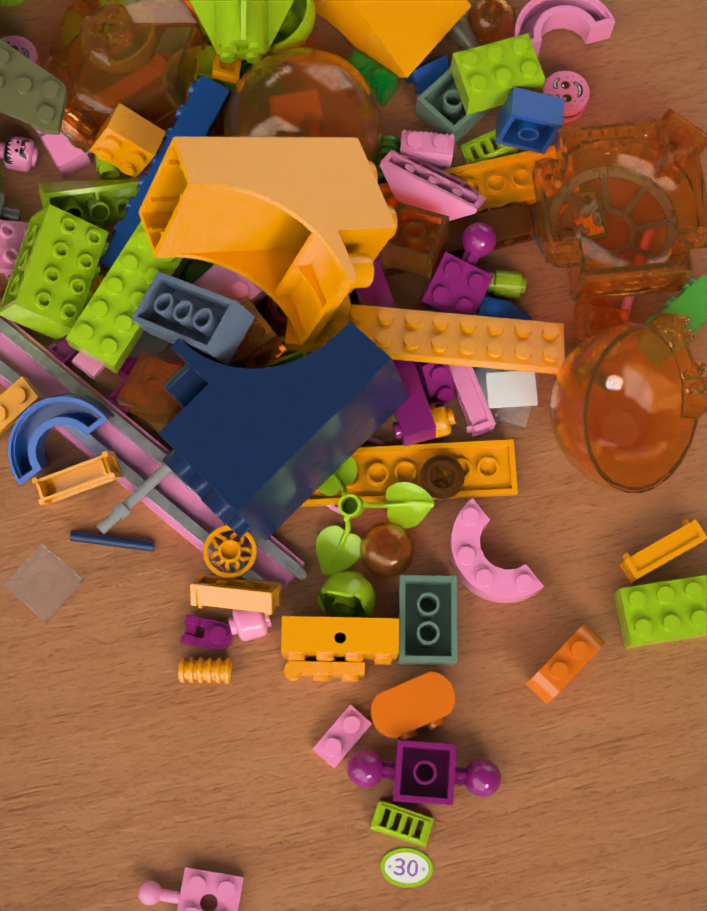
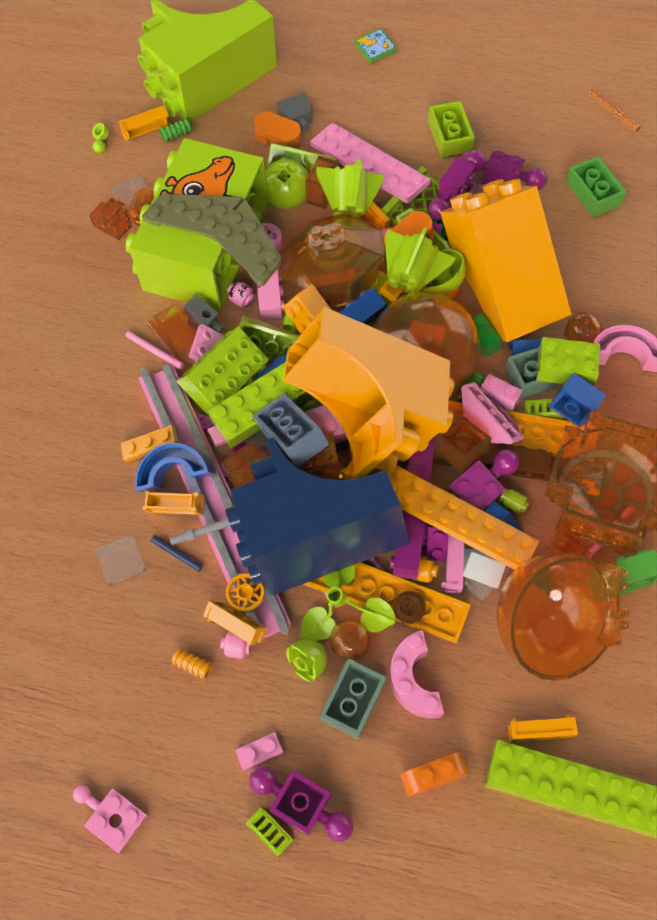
camera: 30 degrees right, 10 degrees down
(78, 132) = (279, 290): clear orange wing -> none
(216, 635) = (210, 644): magenta plate -> none
(323, 670) = (268, 700): light orange plate -> none
(362, 637) = (287, 683): light orange brick -> none
(406, 867) = (258, 865): sticker -> none
(413, 706) = (315, 753): orange brick -> none
(463, 34) = (559, 329): dark tan cone -> none
(572, 89) = (616, 397): bright pink head -> none

